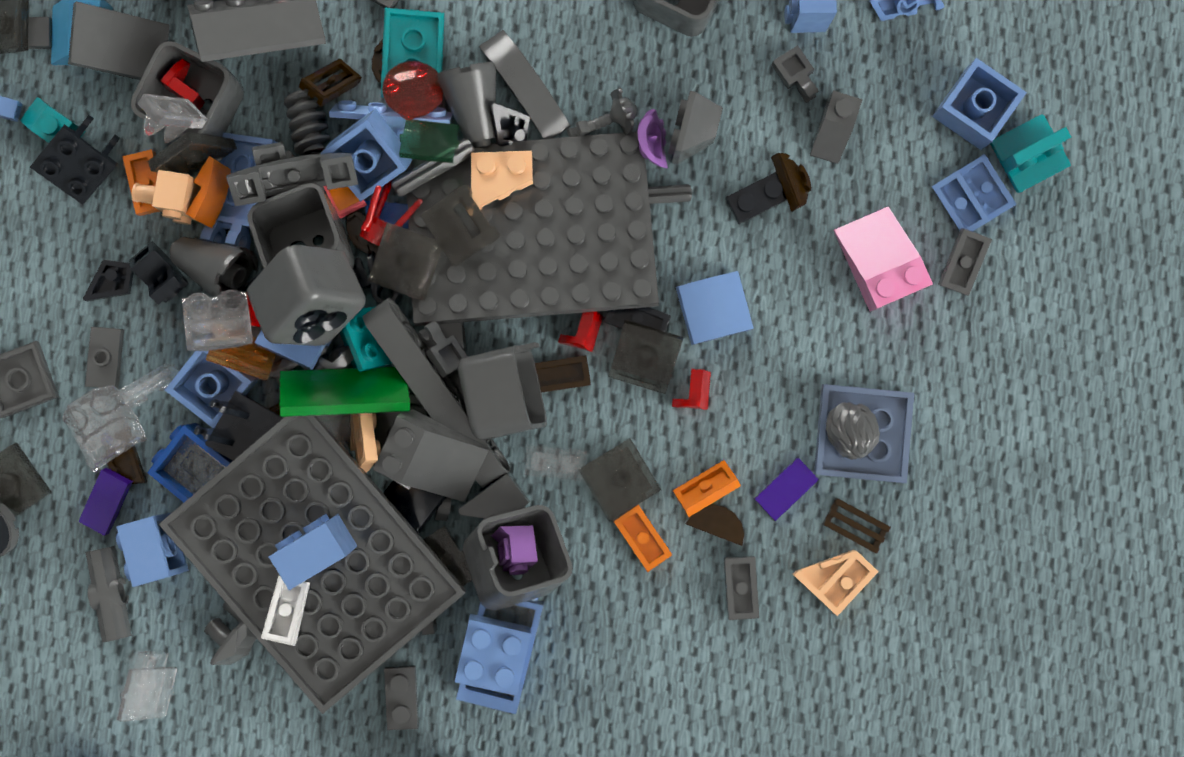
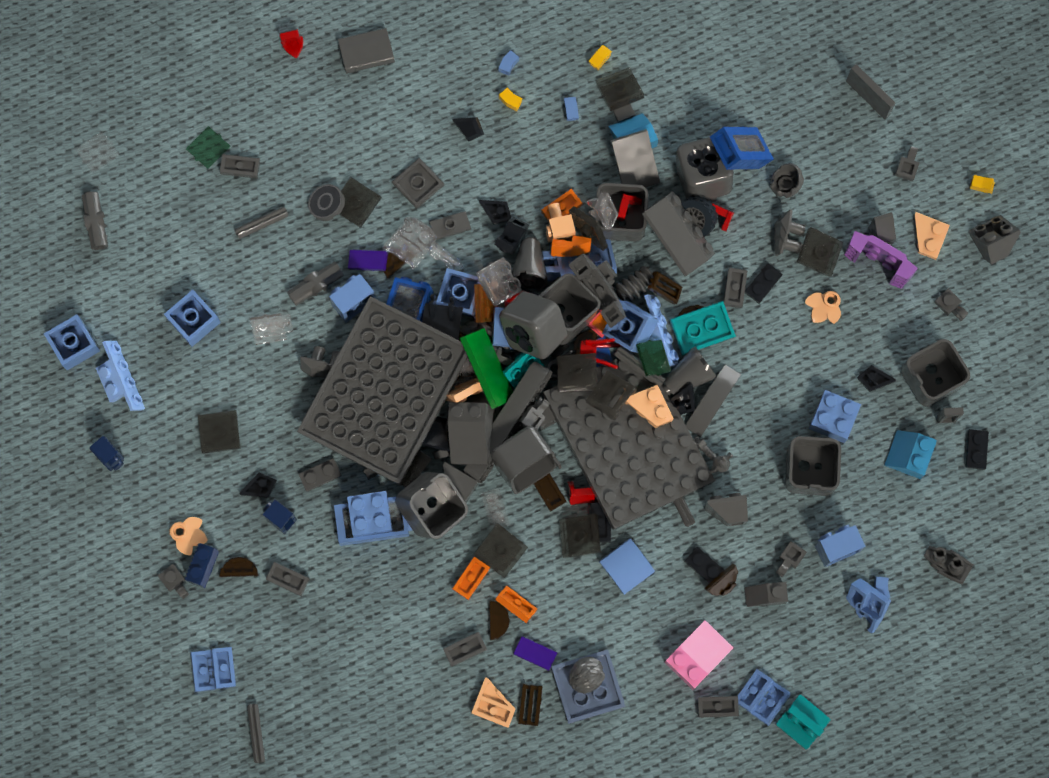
camera: 65 degrees right, 10 degrees down
(45, 120) = (572, 141): teal slope -> none
(74, 163) = (555, 165): black plate -> none
(285, 613) = (348, 386): white slope -> none
(305, 555) = (391, 387): medium blue brick -> none
(412, 89) = (680, 336): clear red dish -> none
(516, 548) = (436, 503): medium lavender window -> none
(652, 138) = (711, 487): medium lavender hat -> none
(698, 391) = (572, 576): red tile -> none
(979, 104) = (817, 675): medium blue brick -> none

